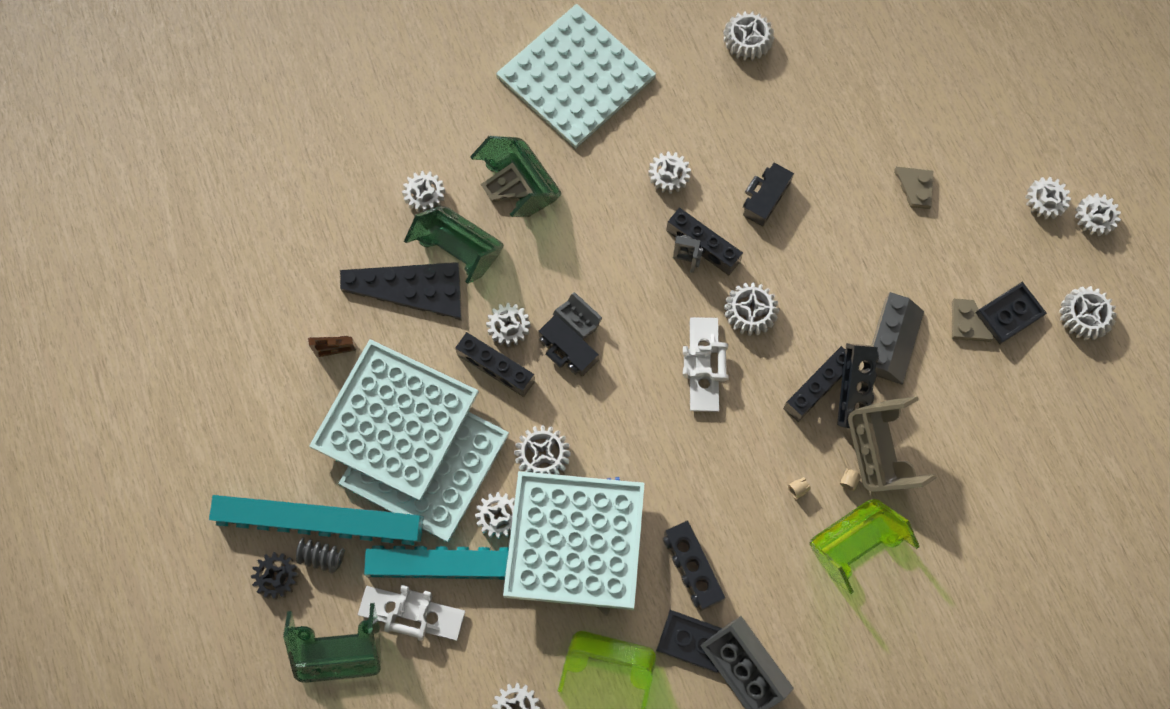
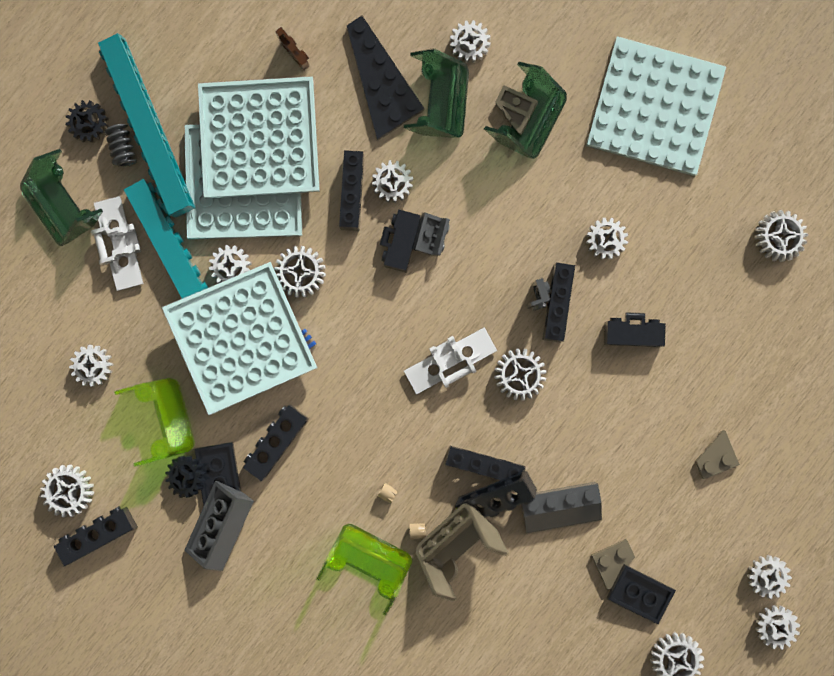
camera: 60 degrees right, 15 degrees up
(688, 676) = (185, 476): none -> black gear

